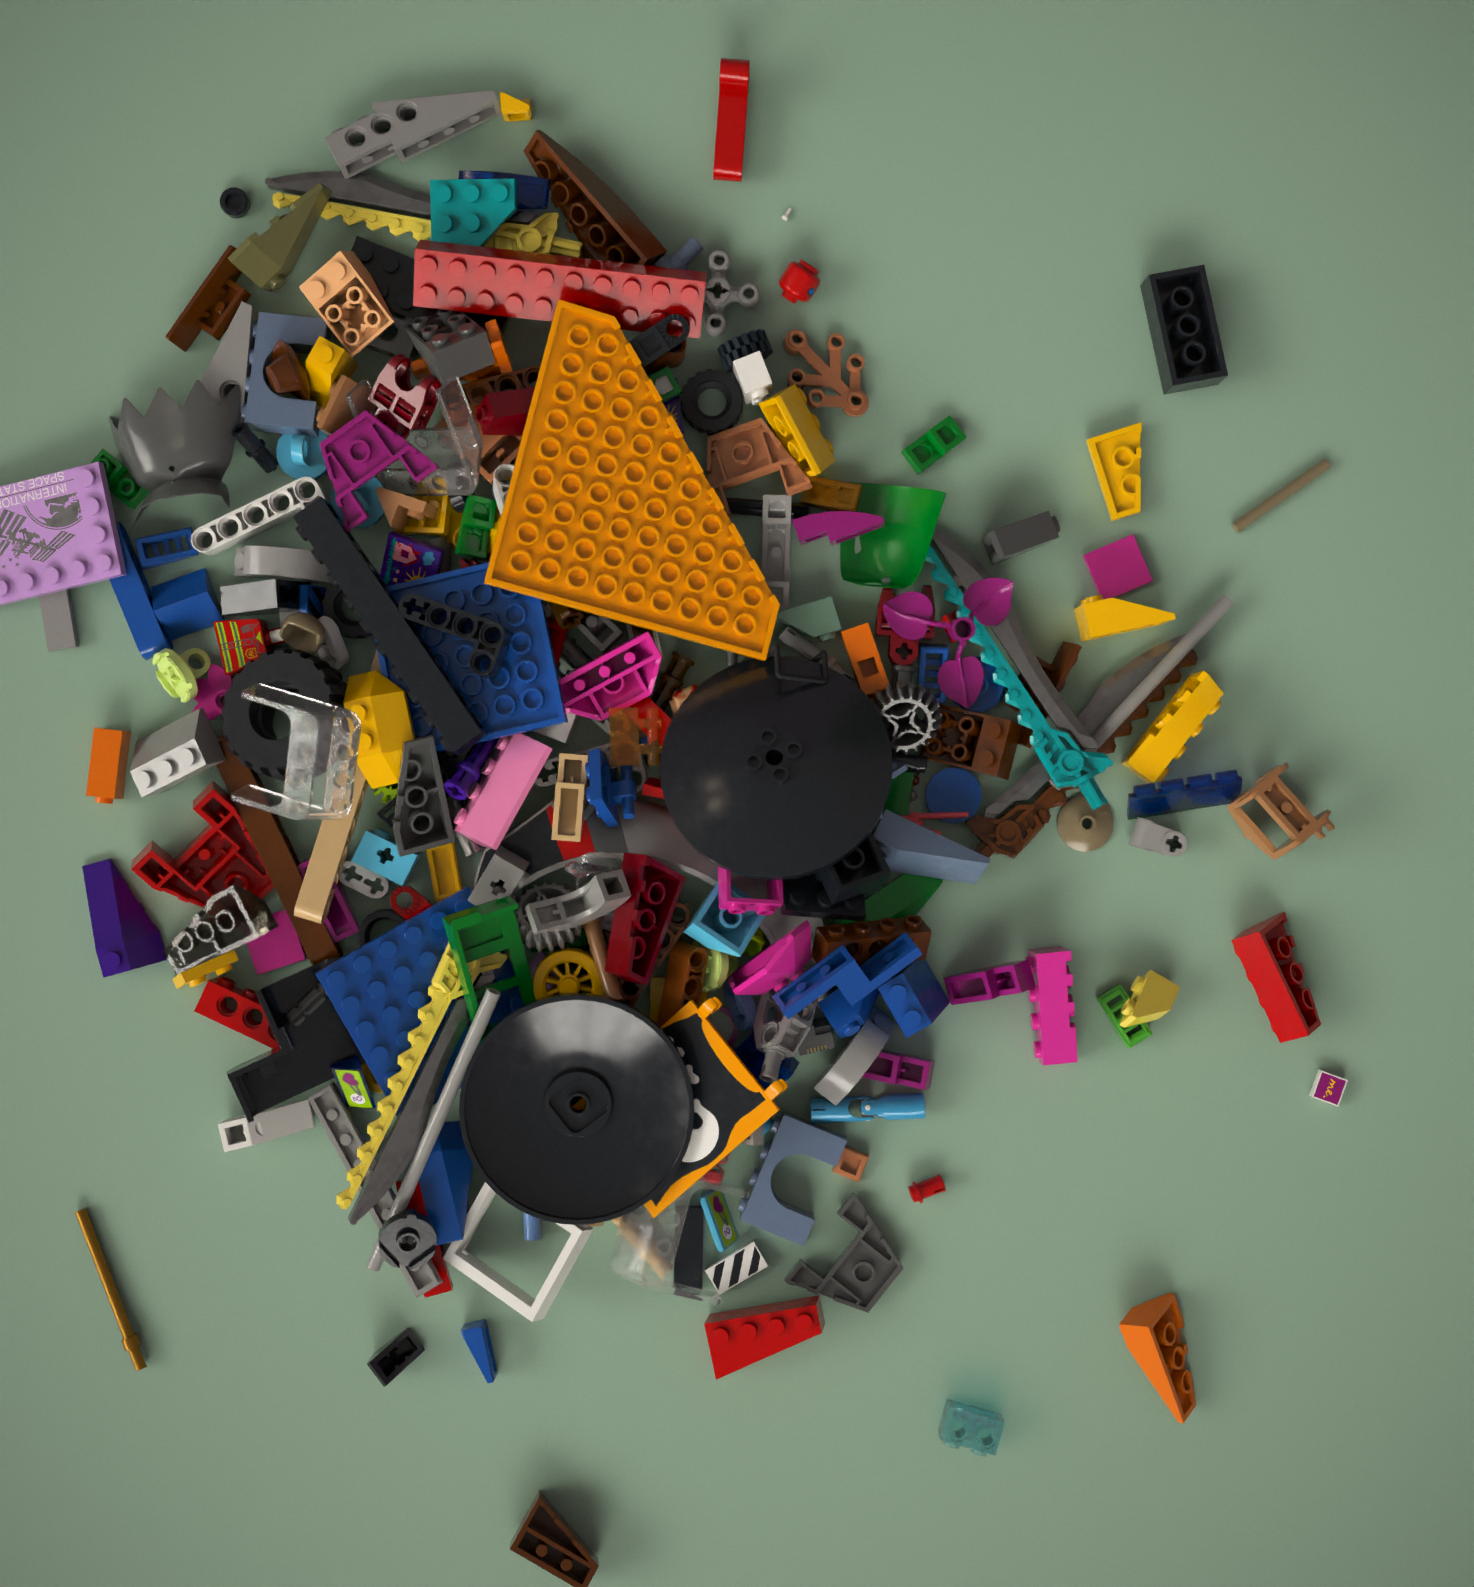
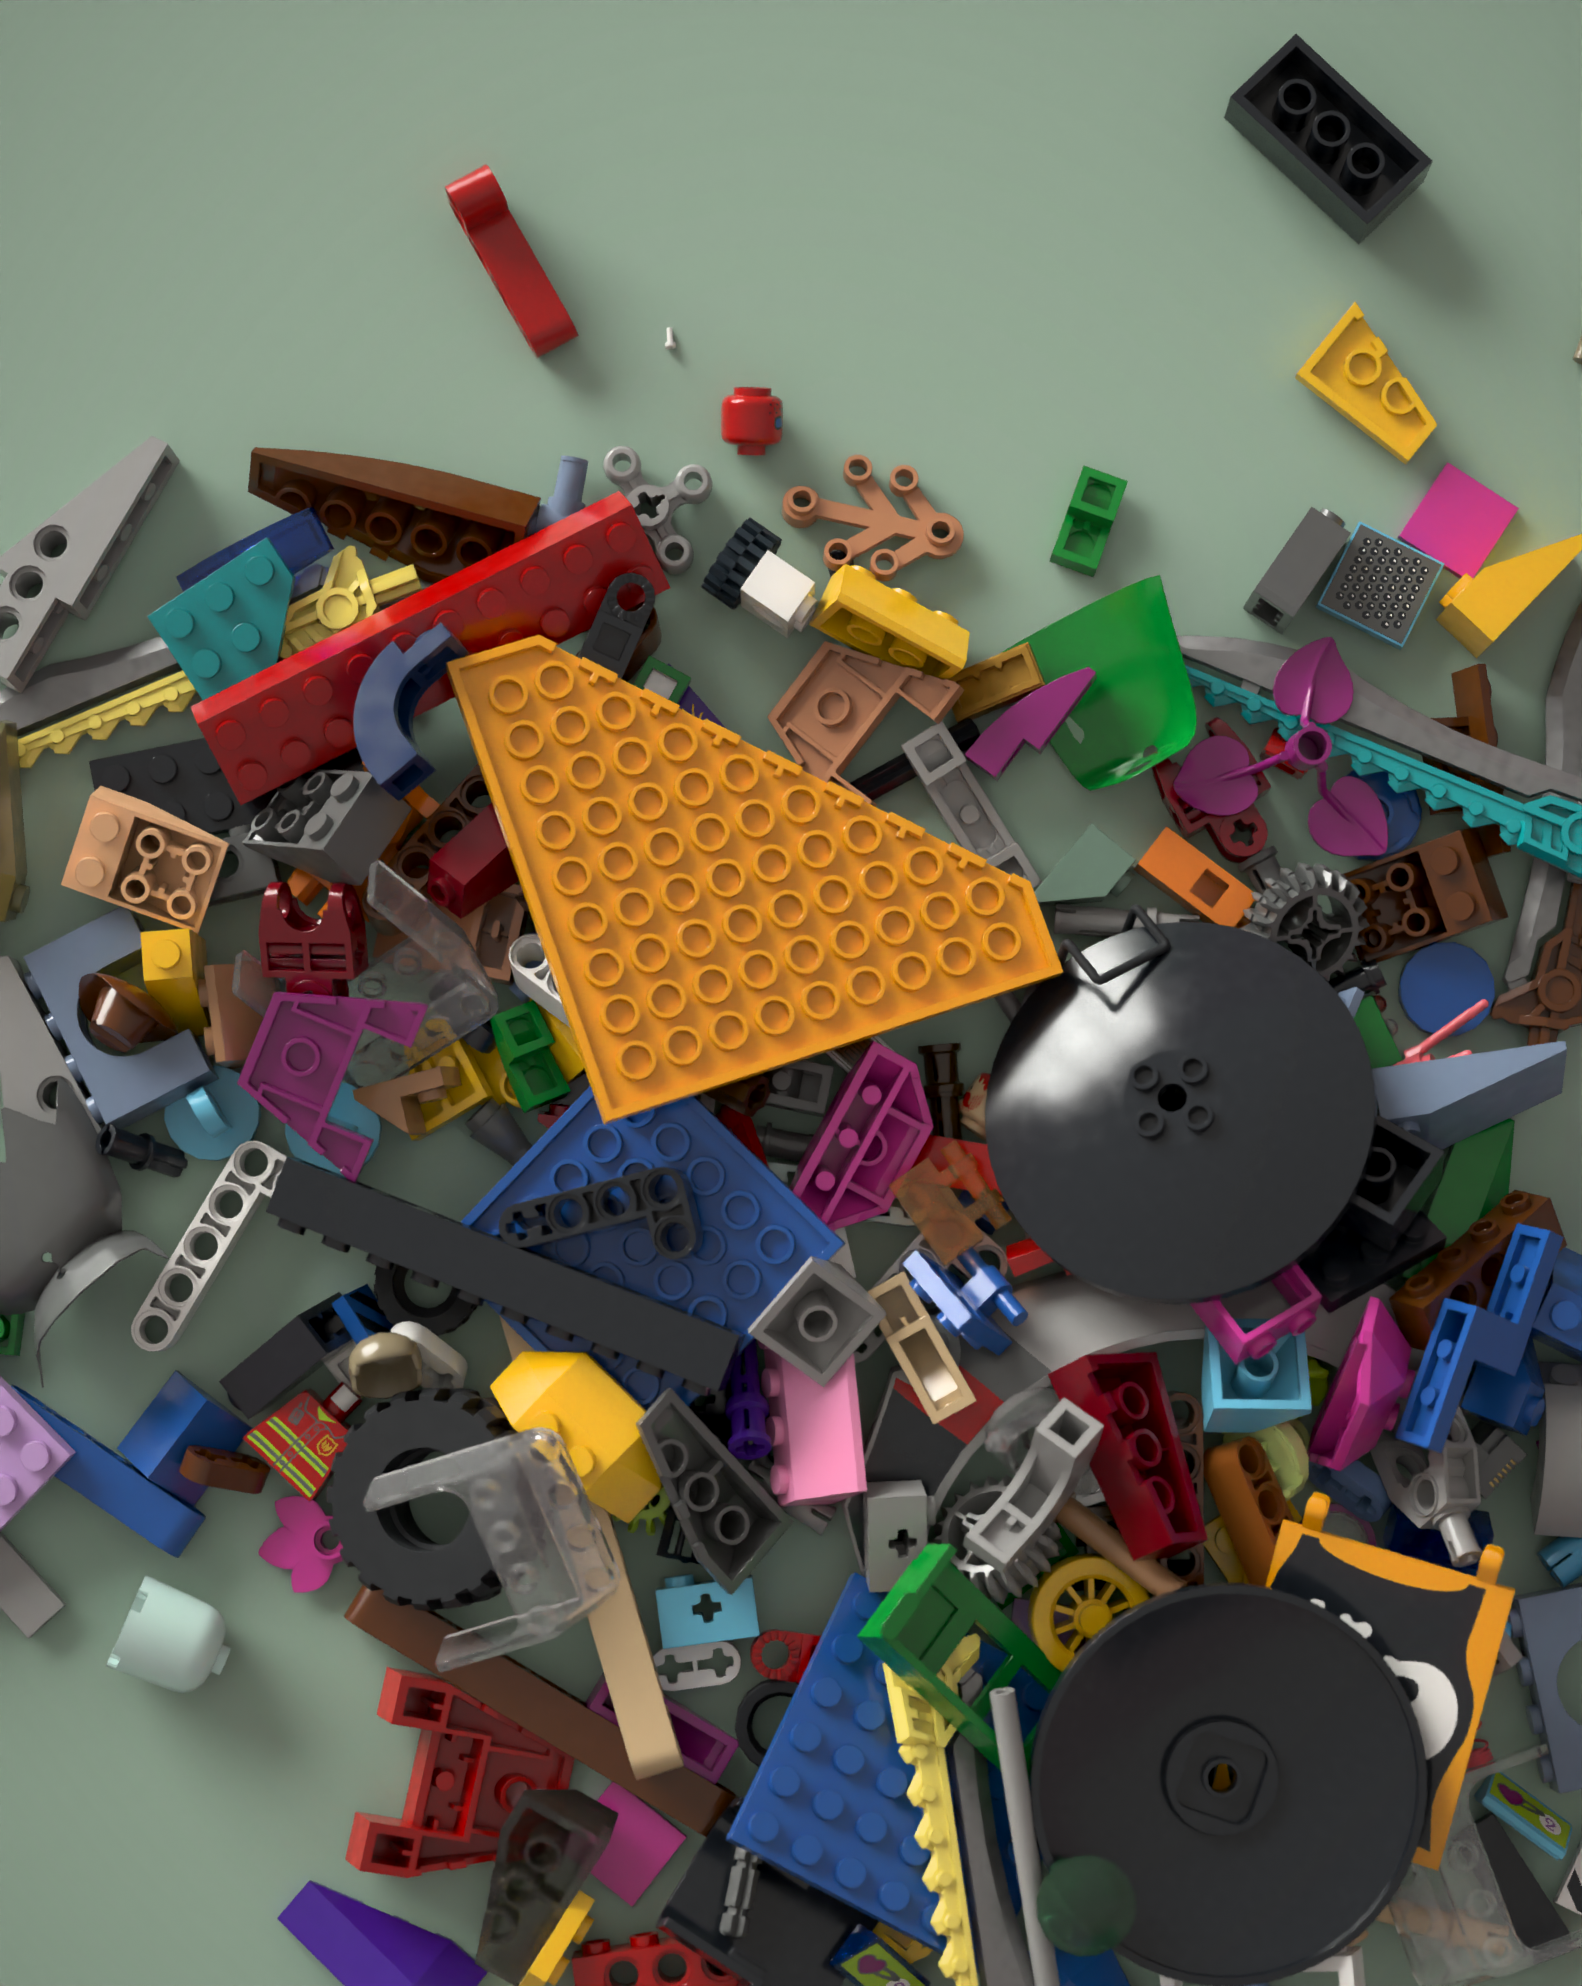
camera: 35 degrees left, 5 degrees down
(108, 764) = (221, 1744): orange brick -> none
(114, 696) = (170, 1639): none -> light aqua cylinder
(153, 540) = (101, 1404): blue slope -> none
(175, 754) = (309, 1662): light grey slope -> none
(177, 675) = (237, 1547): yellowish green tile -> none
(194, 631) = (224, 1469): none -> reddish brown beam
(279, 563) = (283, 1292): light grey arch -> none
(409, 559) = (464, 1165): dark purple tile -> none
(444, 870) = (802, 1577): yellow tile -> none
(466, 1121) = (1085, 1905): none -> clear green dish
(514, 302) = (388, 705): none -> dark blue arch
(515, 109) = (197, 440): yellow slope -> none
(528, 750) = (818, 1319): none -> light grey slope
(706, 380) = (729, 630): black tyre -> none
(924, 648) = (1276, 829): blue slope -> none
(1056, 573) = (1379, 585): none -> tile

